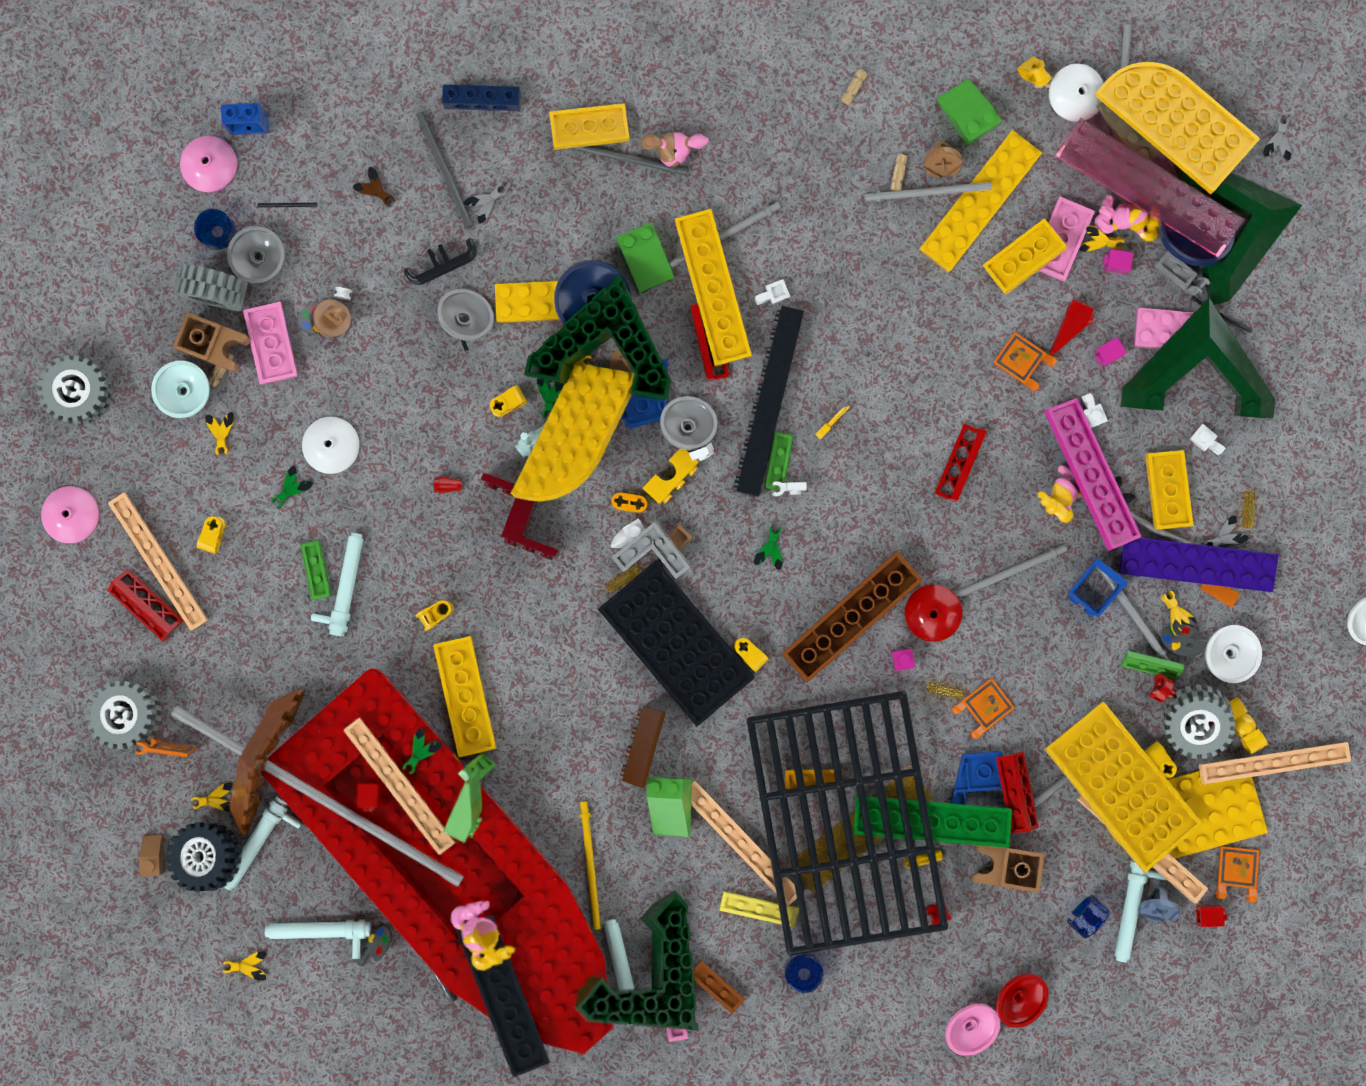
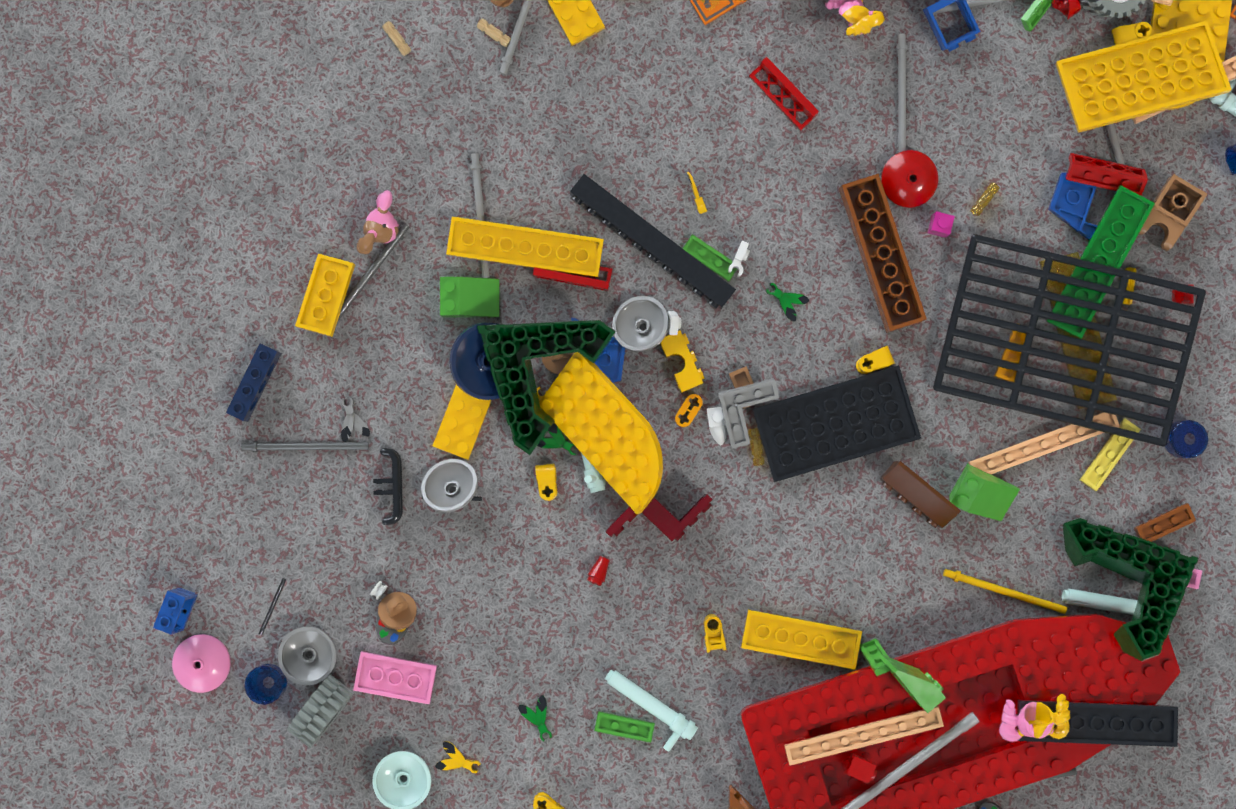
camera: 65 degrees left, 0 degrees up
(214, 343) = (373, 730): medium nougat brick -> none
(218, 373) = (398, 735): tan axle -> none
(342, 451) = (522, 651): white dish -> none
(376, 188) = (294, 519): reddish brown piece -> none
(421, 752) = (838, 703): green piece -> none
(774, 292) = (554, 192): white plate -> none
(986, 705) = (1012, 168): orange flag -> none

